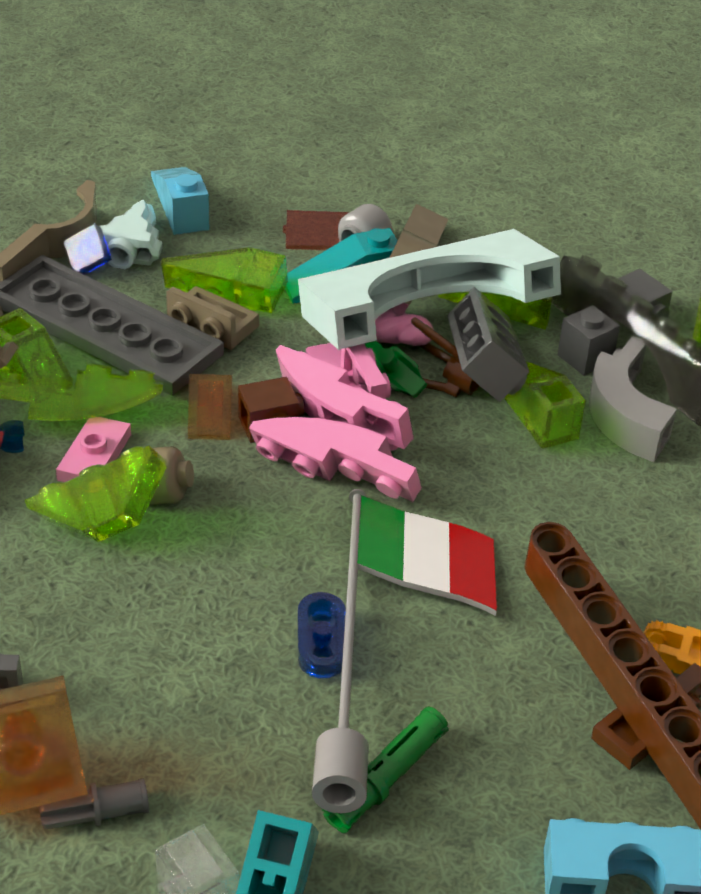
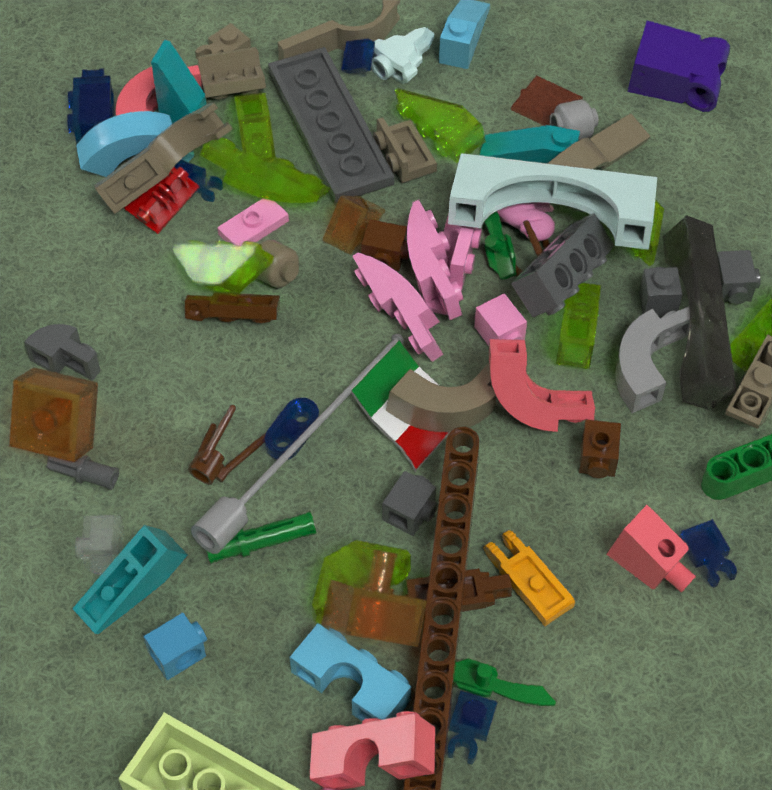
camera: 35 degrees right, 15 degrees up
(142, 540) = (232, 306): none -> reddish brown hinge
(255, 720) = (209, 462): none -> reddish brown plant
(422, 154) = (679, 66): none -> dark purple piece
(463, 430) = (500, 320): none -> bright pink brick
(469, 534) = (441, 407): none -> dark tan arch
(524, 646) = (410, 503): none -> dark grey brick
(534, 752) = (353, 565): none -> clear neon green slope
(535, 464) = (527, 400): none -> coral arch
(609, 759) = (374, 607): none -> clear orange brick
(664, 501) = (600, 448): none -> reddish brown brick

